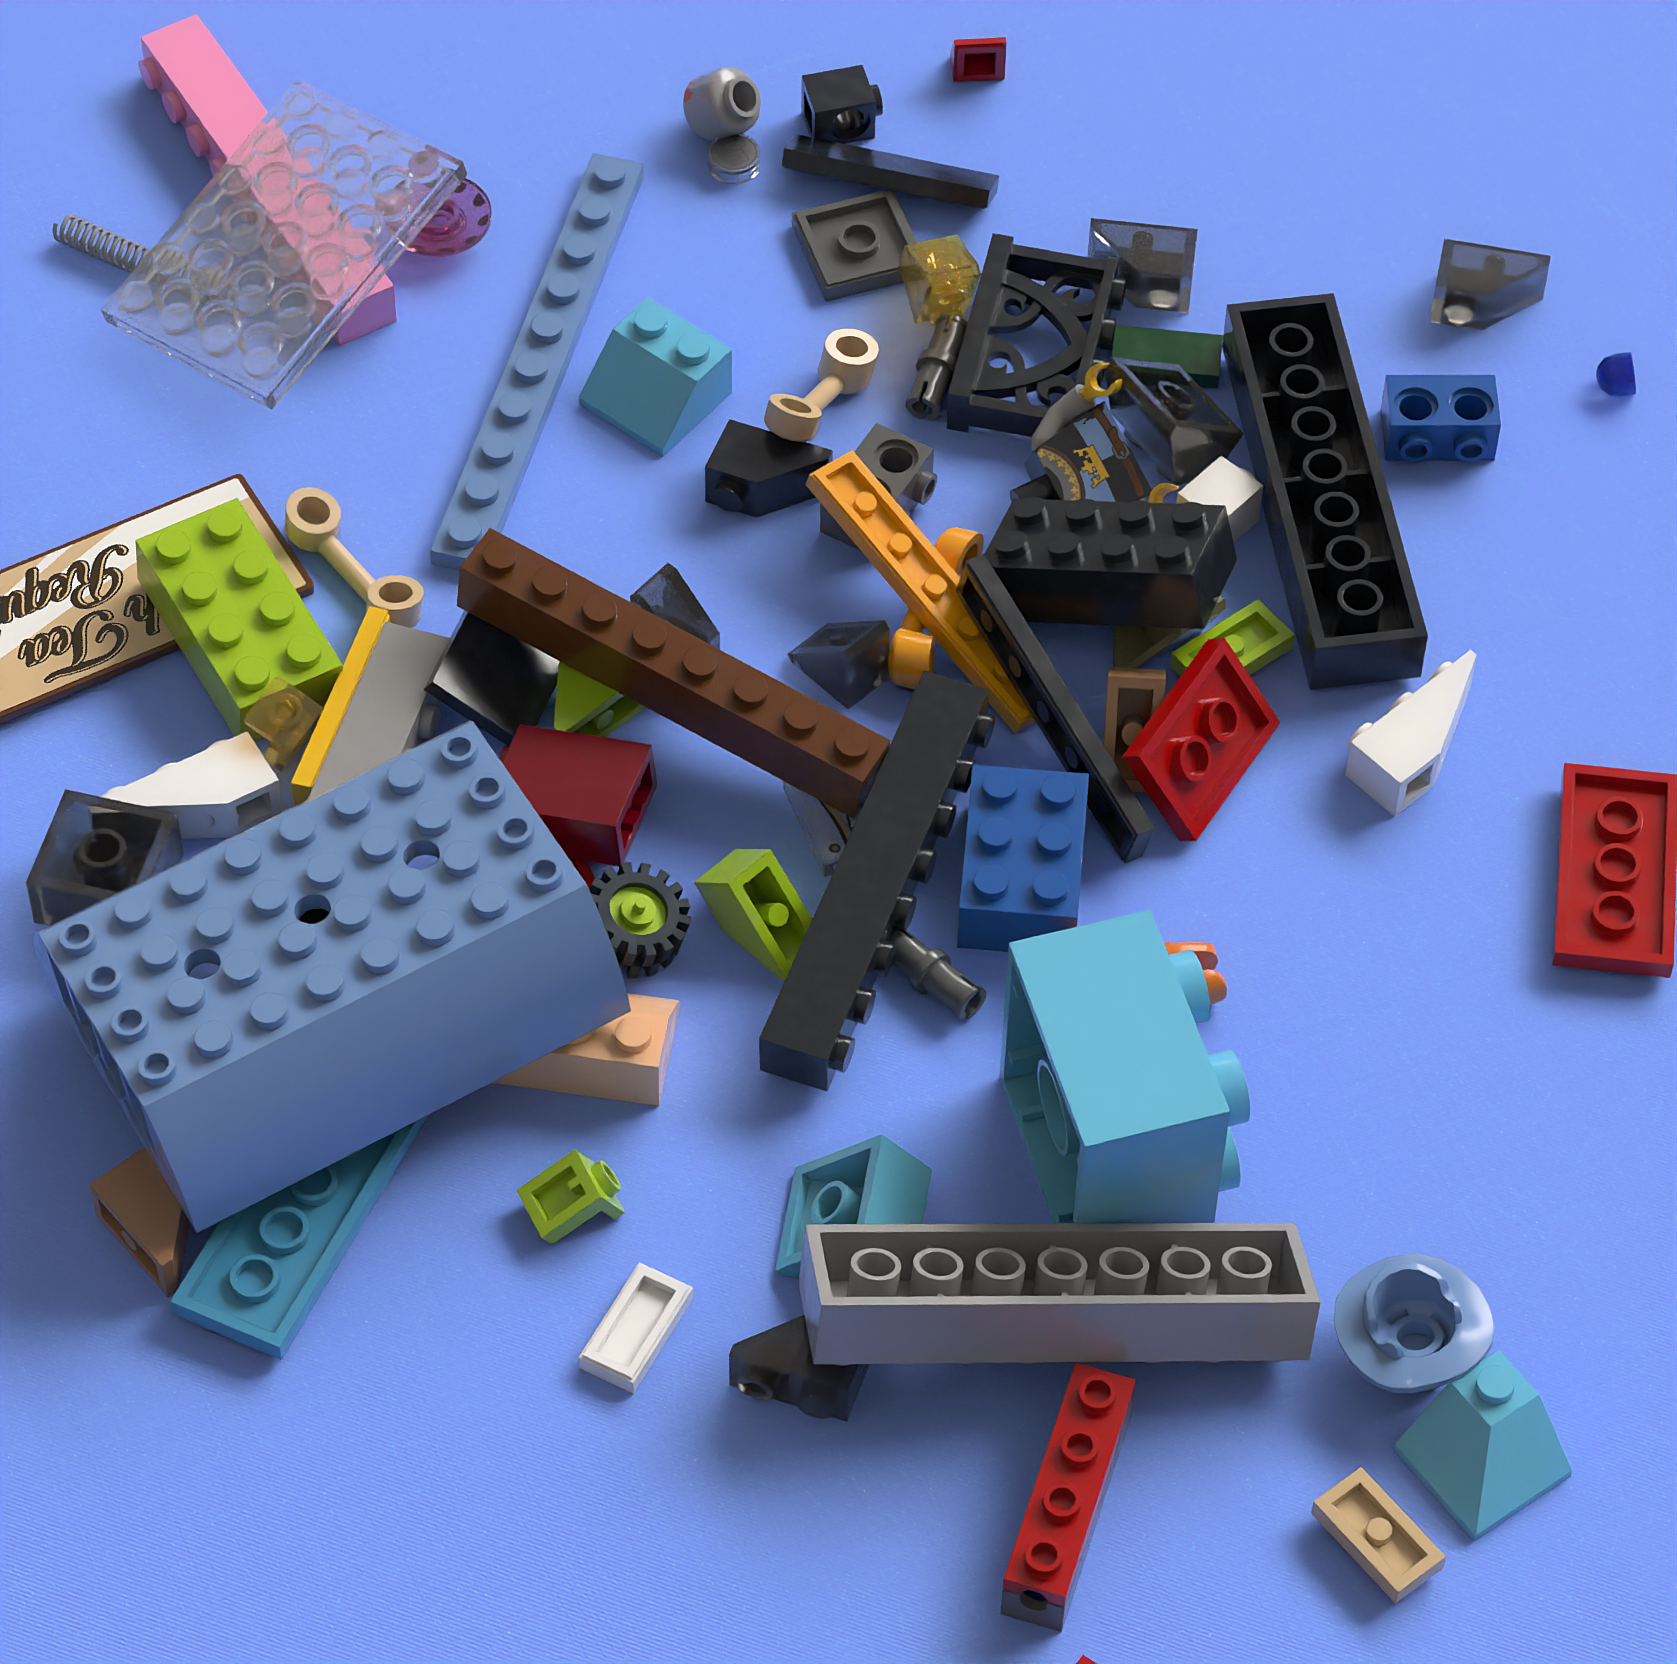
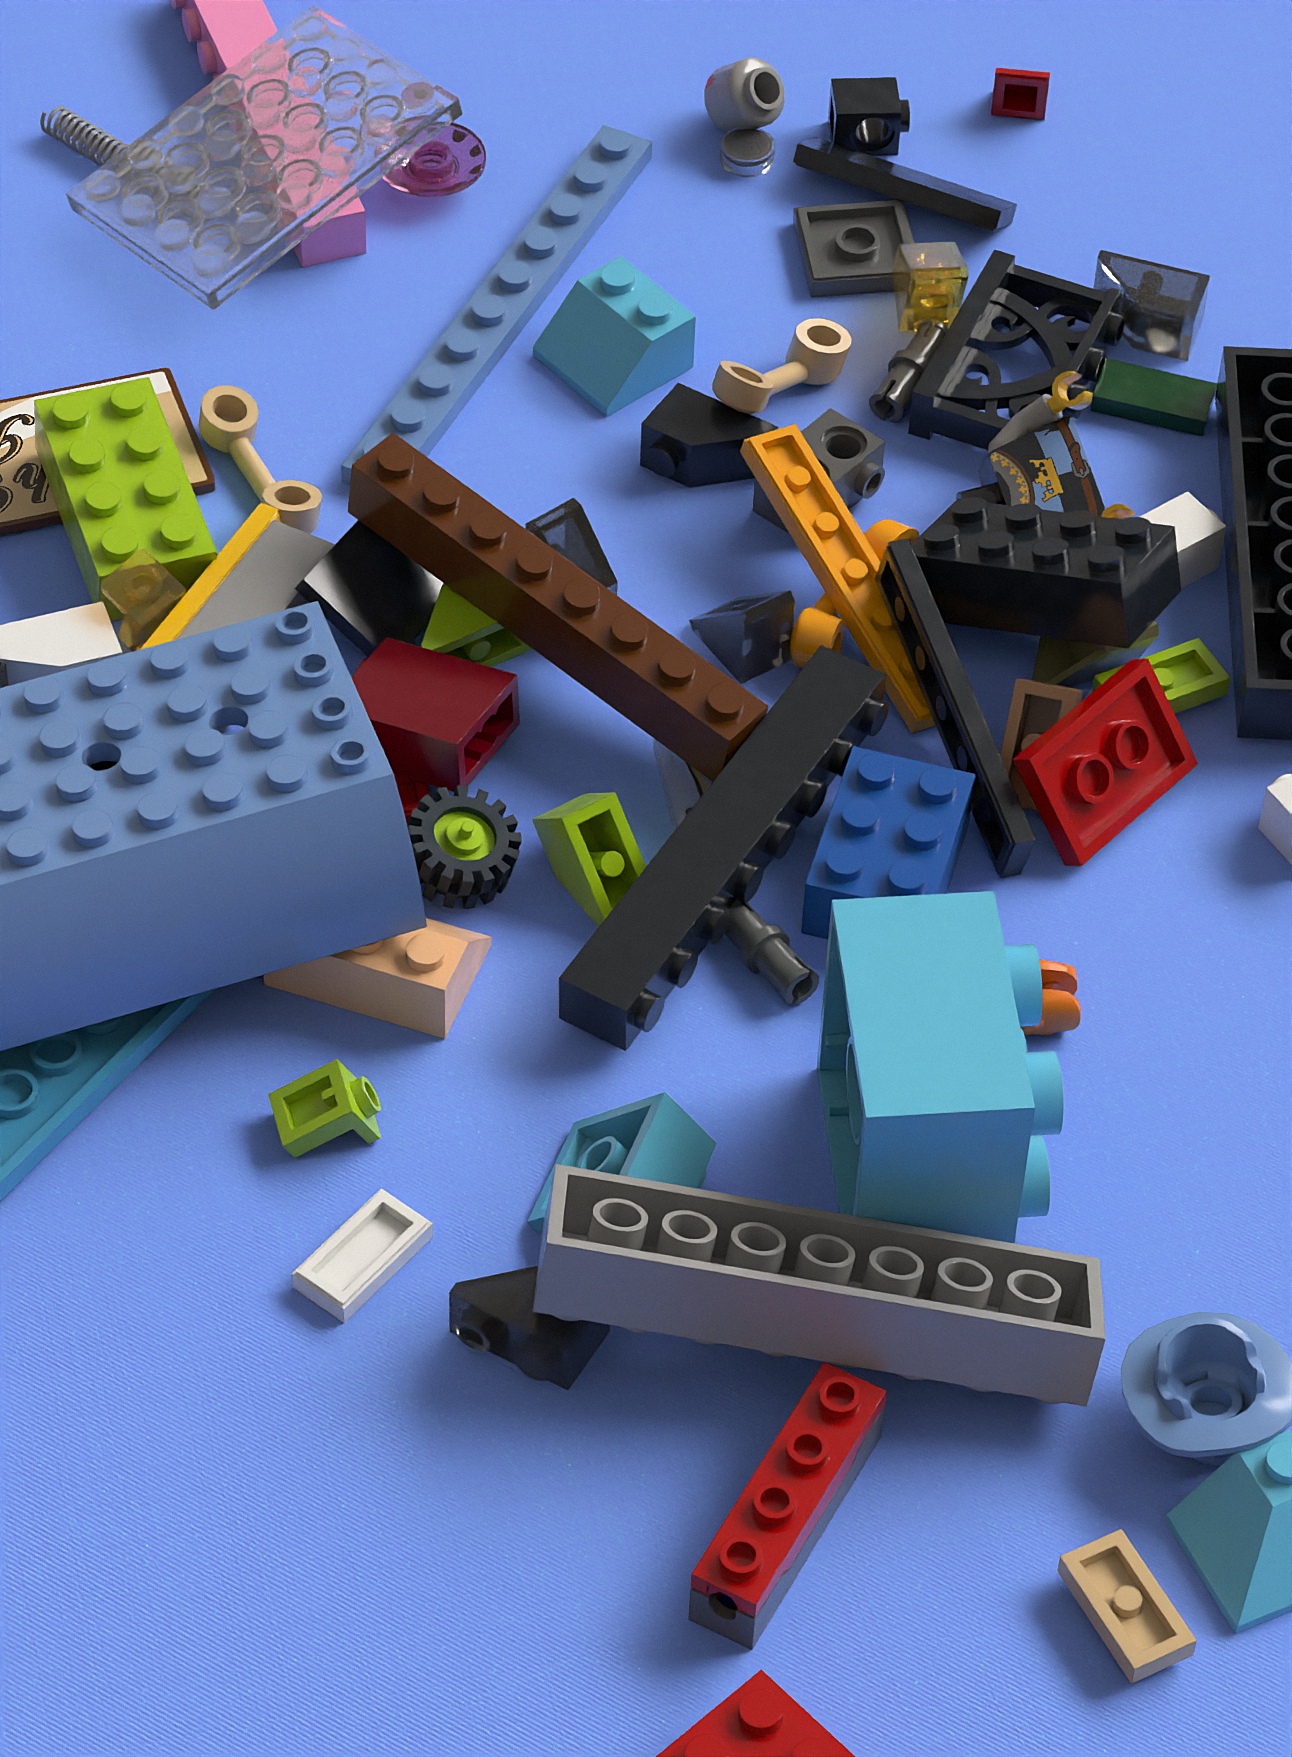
camera: 10 degrees right, 5 degrees down
(1169, 417) = (1139, 445): clear smoke slope -> none

